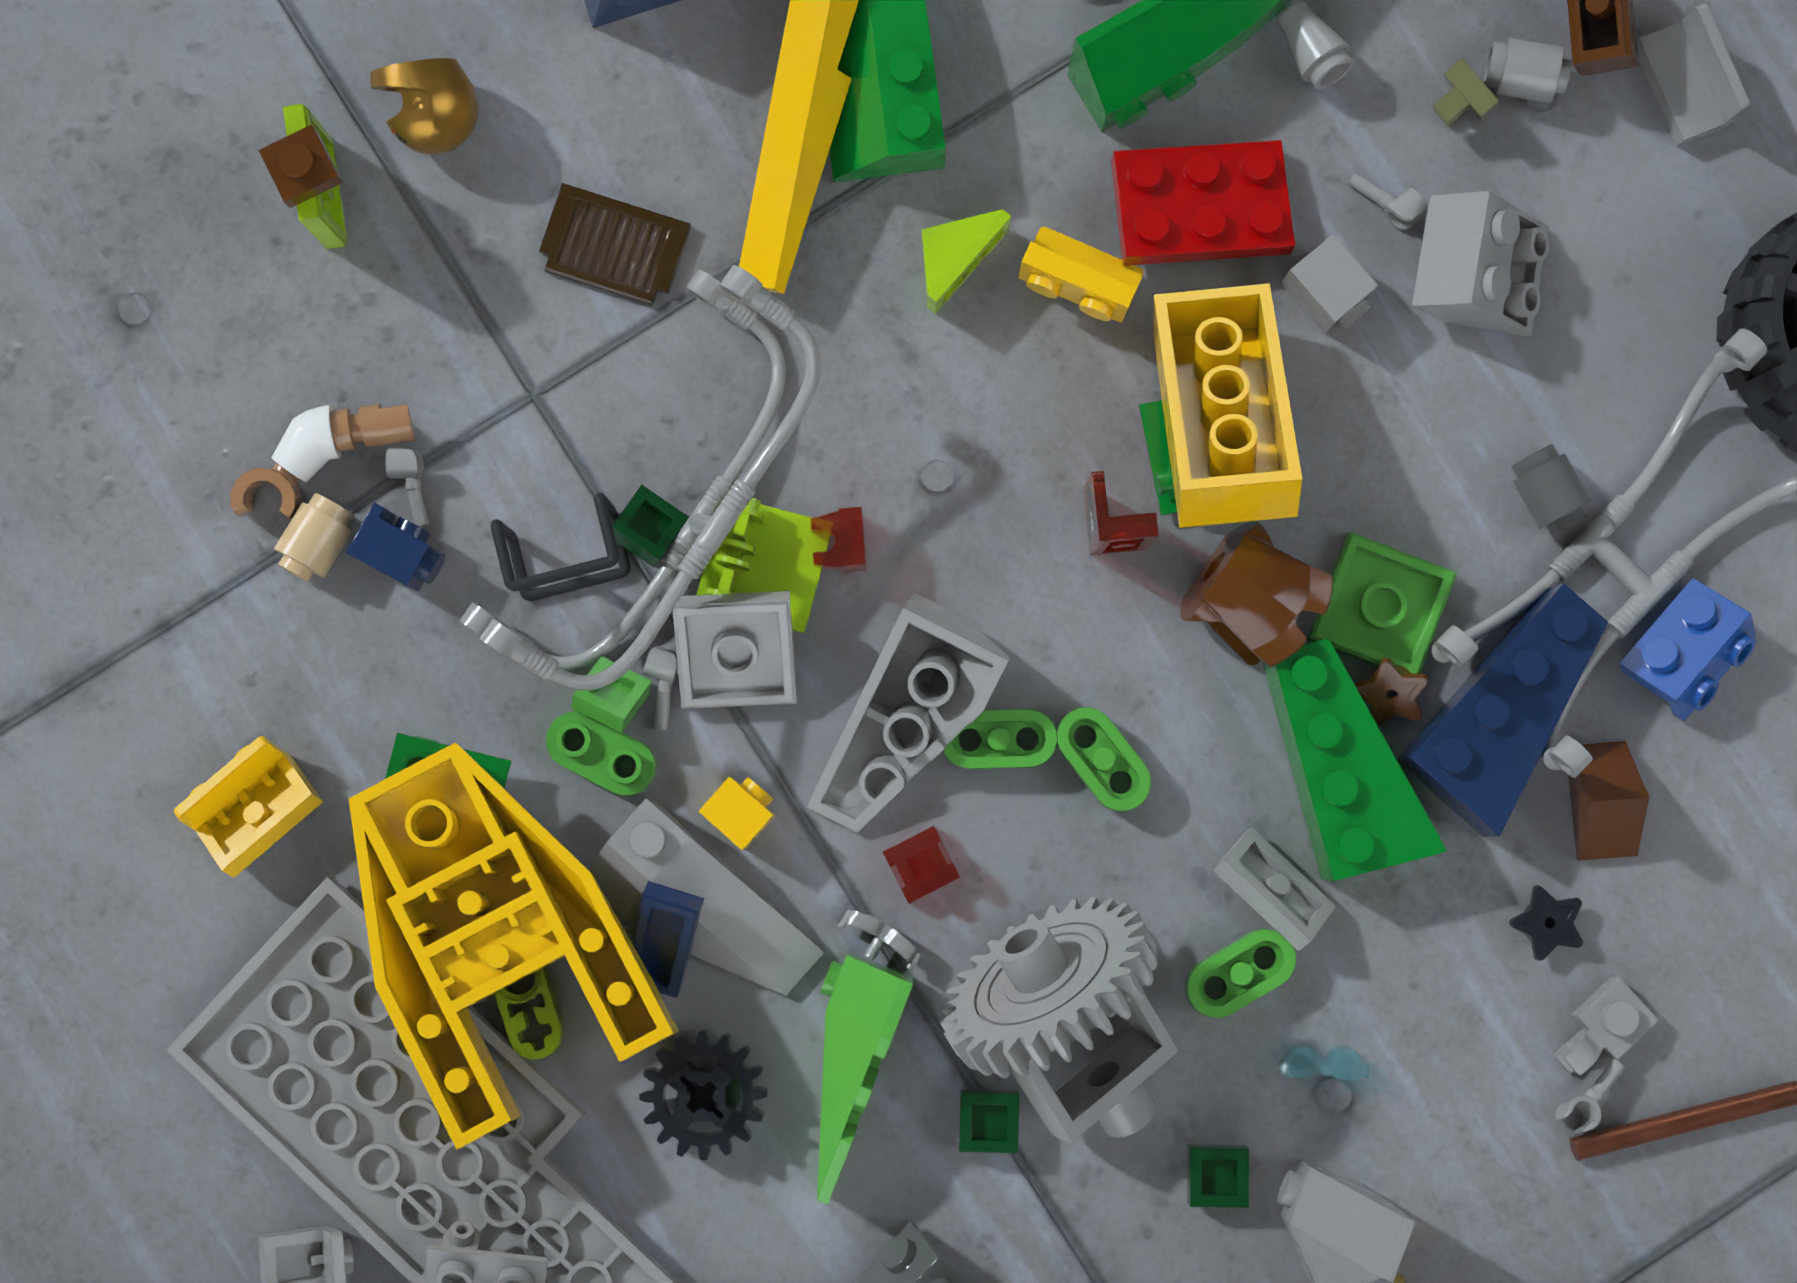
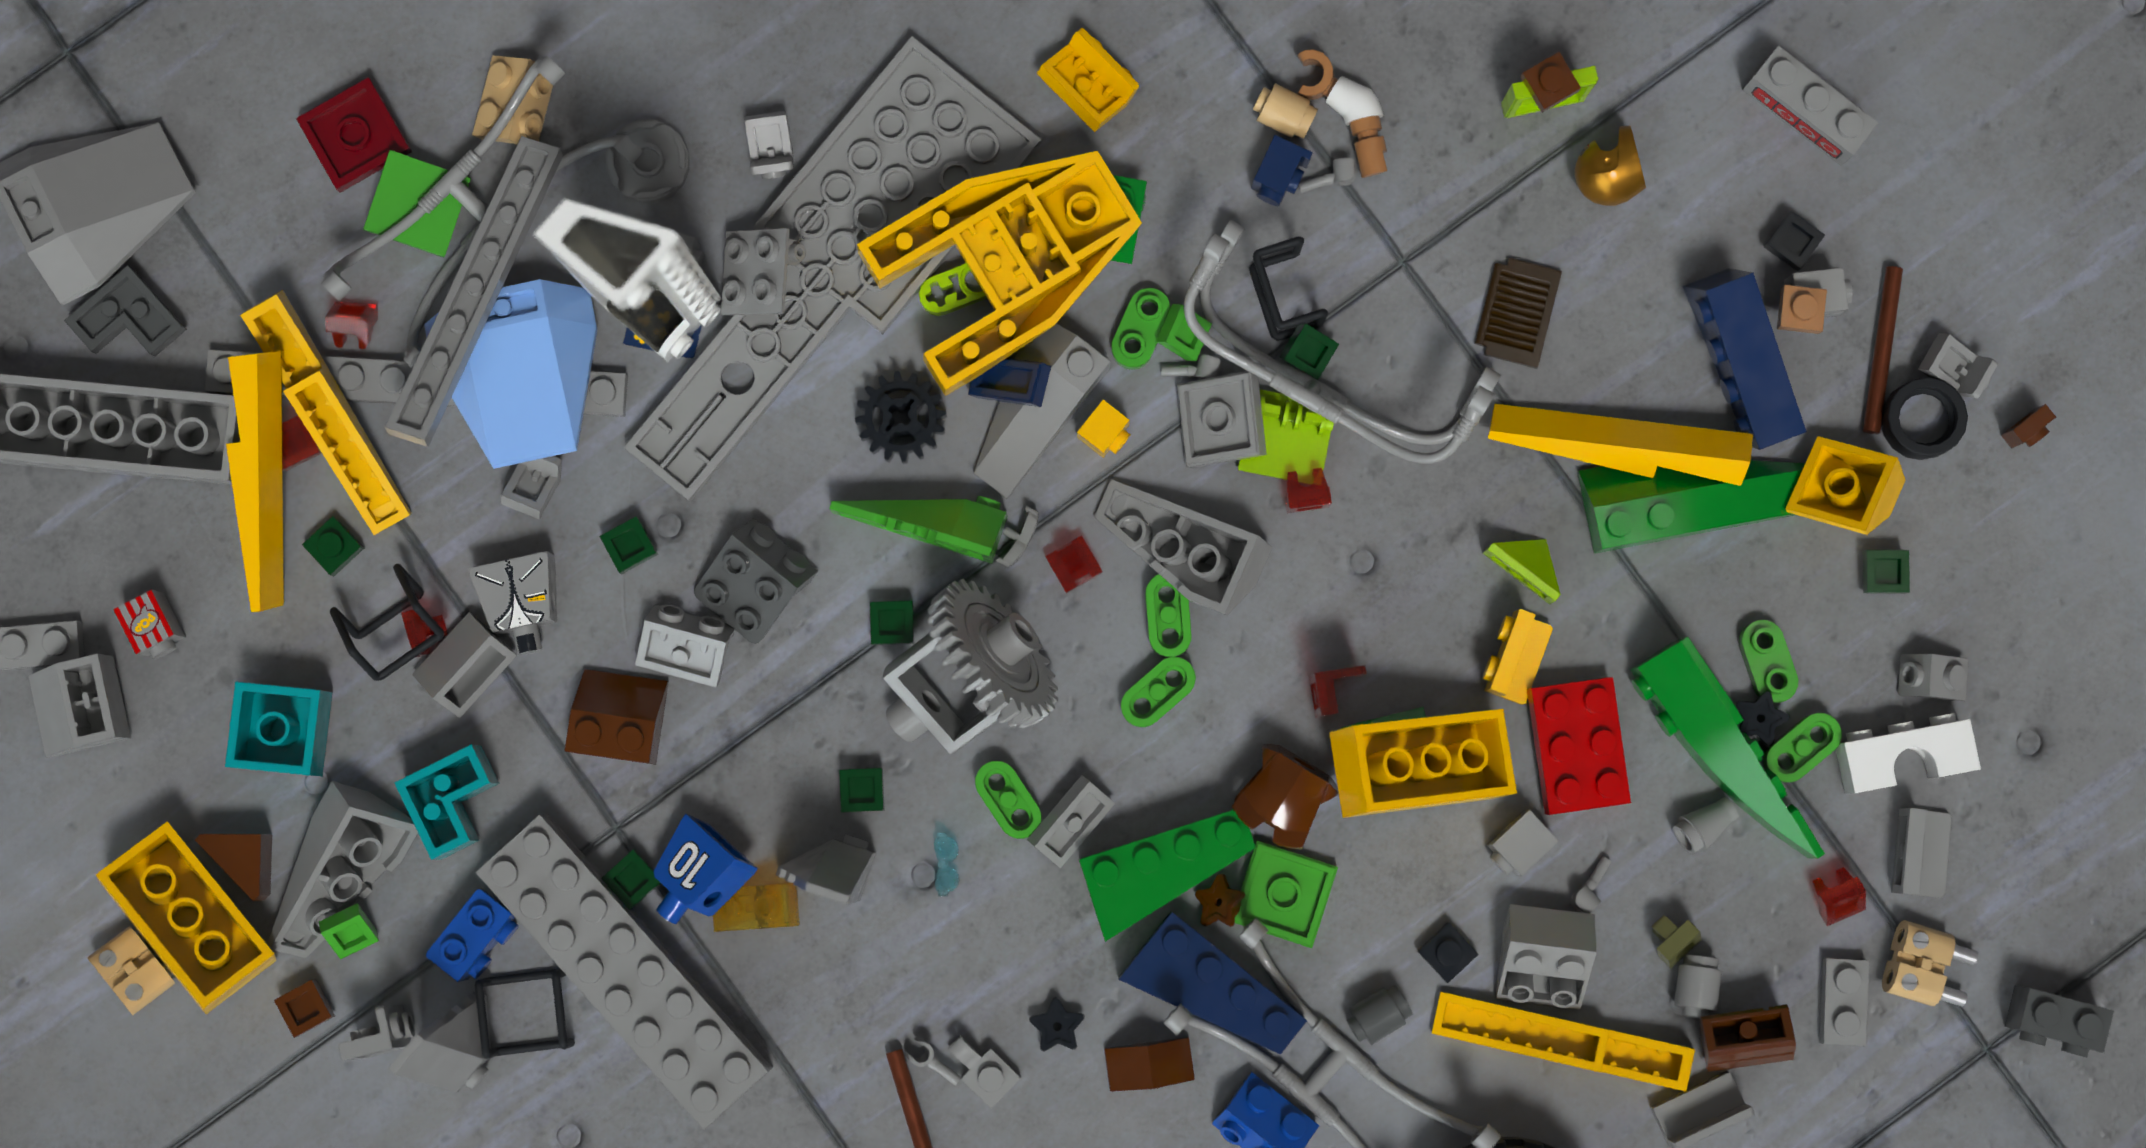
camera: 90 degrees right, 0 degrees up
(1468, 394) = (1447, 952): none -> black plate
(1591, 247) = (1563, 1041): none -> yellow slope

